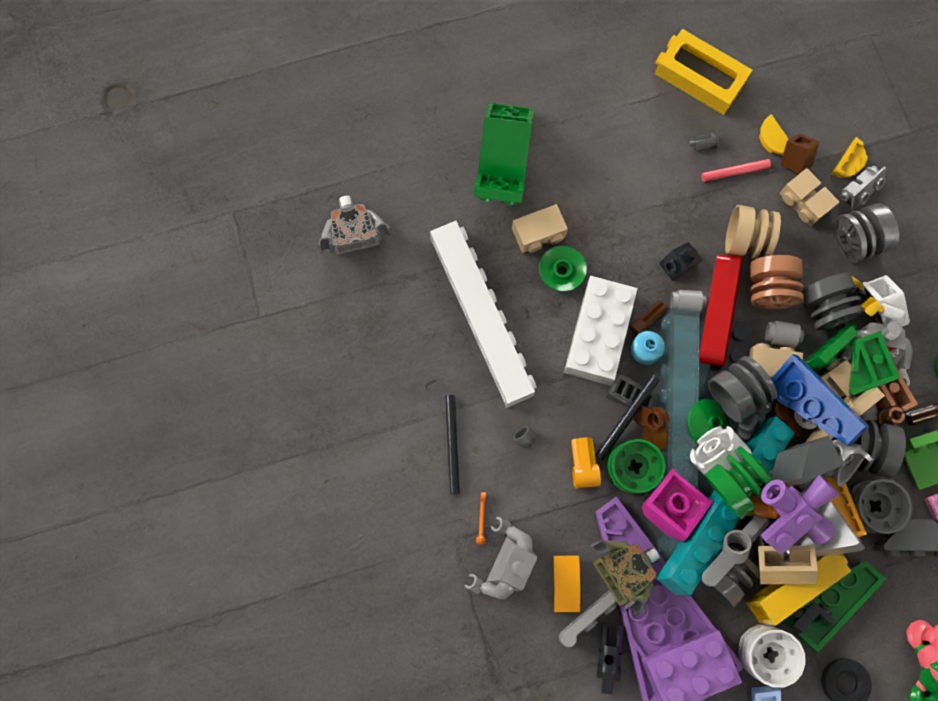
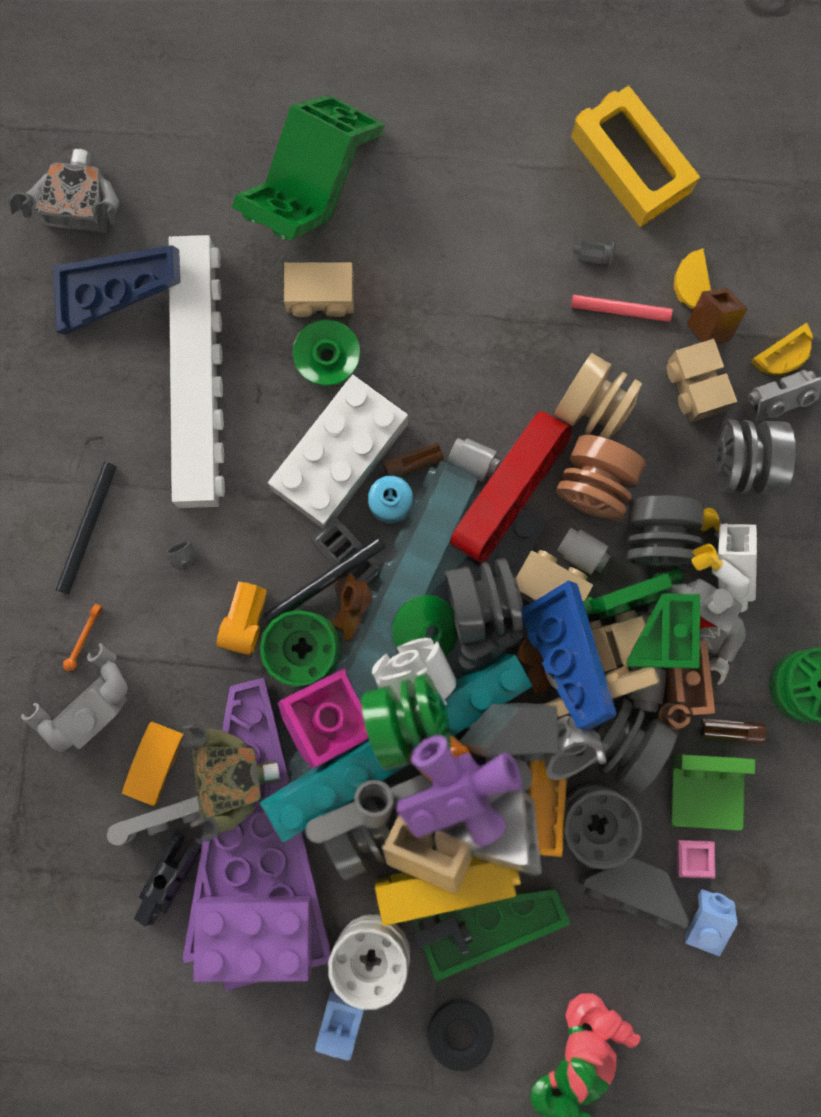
camera: 20 degrees right, 5 degrees up
(400, 278) = (110, 283): none -> dark blue wing
(680, 260) = (490, 400): black bracket -> none

